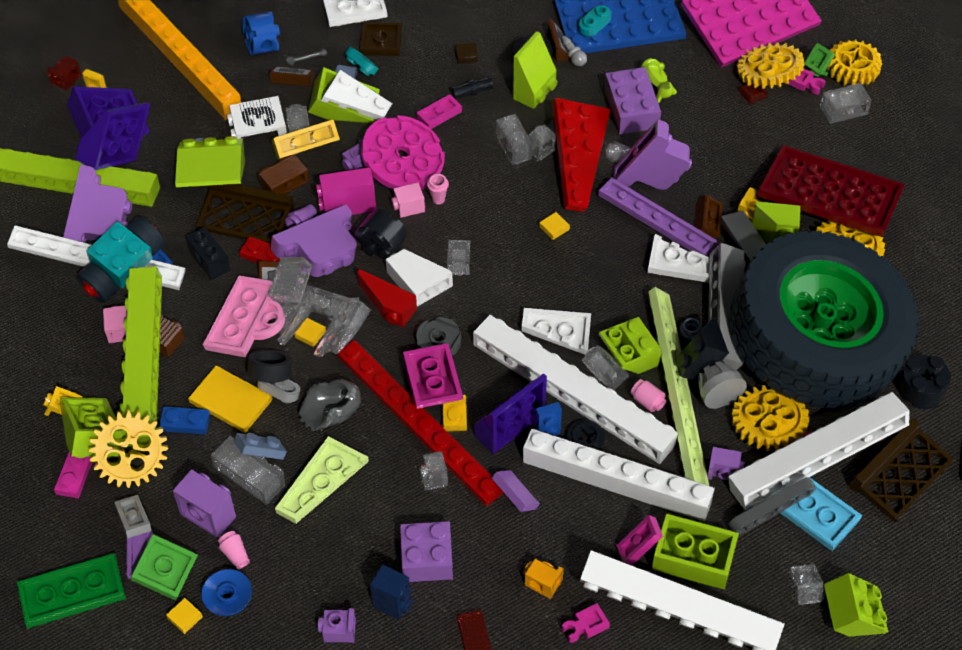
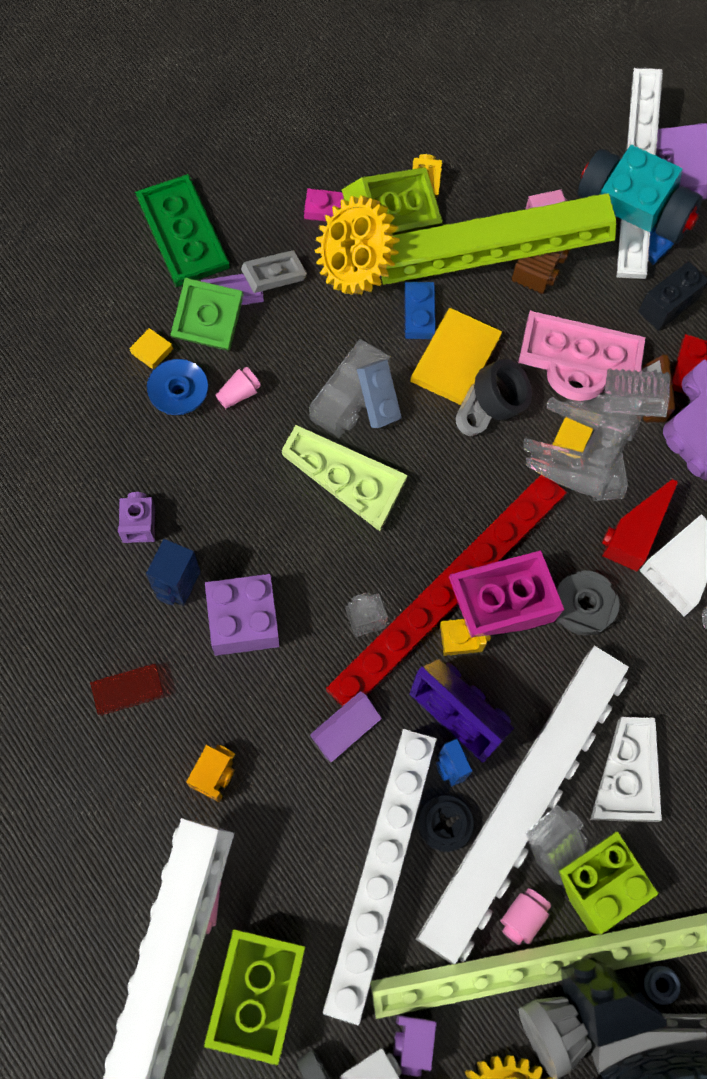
camera: 80 degrees right, 15 degrees up
(205, 503) = (290, 341): medium lavender brick -> none
(329, 404) = (453, 470): dark grey piece -> none
(588, 621) = (148, 841): dark pink plate -> none
(639, 540) = (267, 909): dark pink plate -> none

